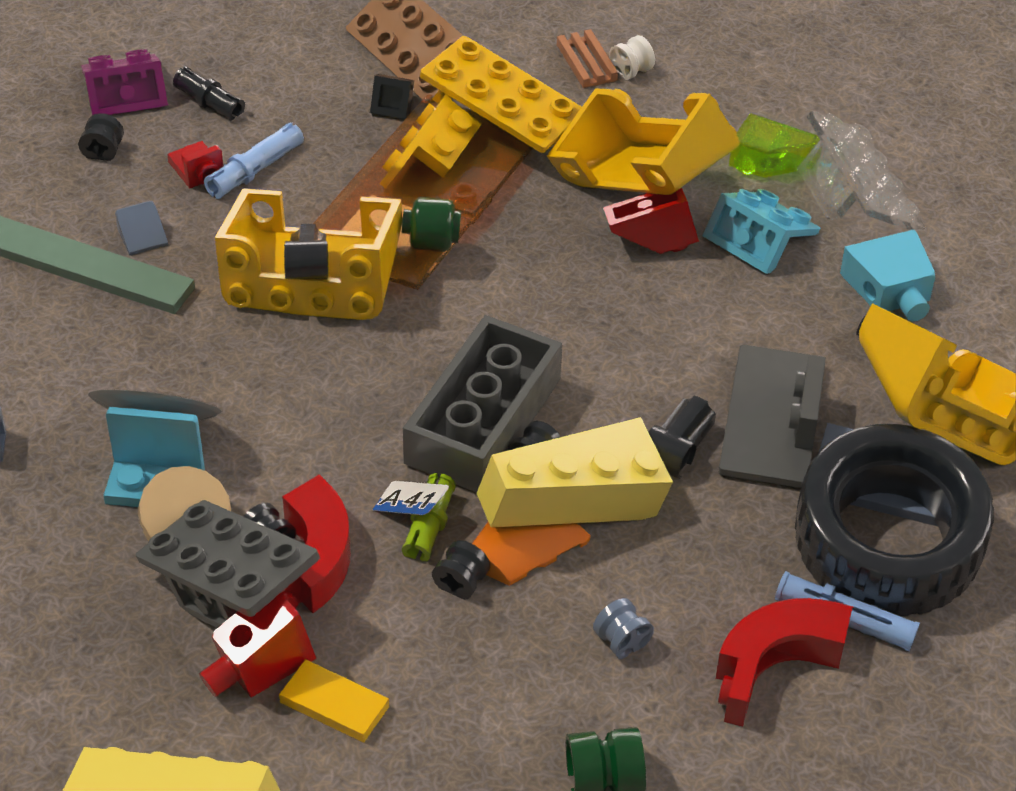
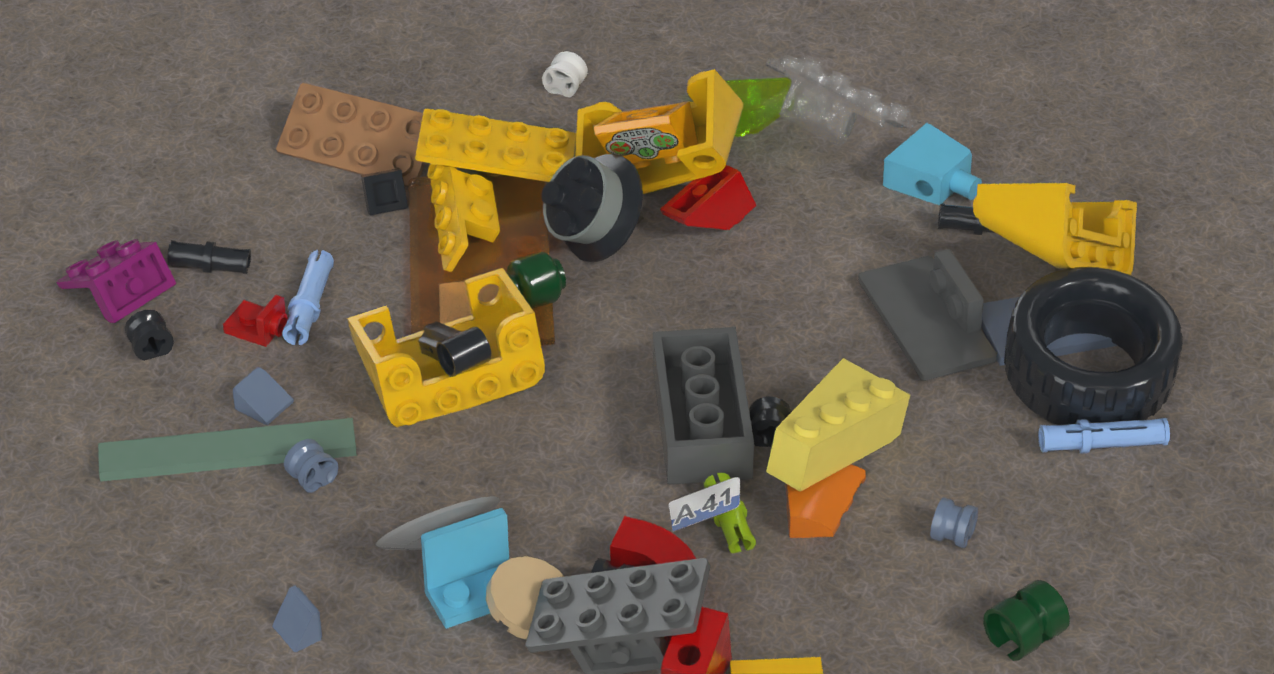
camera: 30 degrees left, 5 degrees down
(120, 304) = (310, 465): none -> sand blue wheel
(461, 569) = (793, 538): black wheel -> none
(539, 178) = (593, 204): none -> black piece
(579, 42) = (523, 88): nougat tile -> none
(626, 130) = (648, 133): none -> light orange slope
(682, 433) = (872, 352): black piece -> none
(756, 227) = (793, 176): medium azure bracket -> none
(774, 634) = (1075, 468): red arch -> none

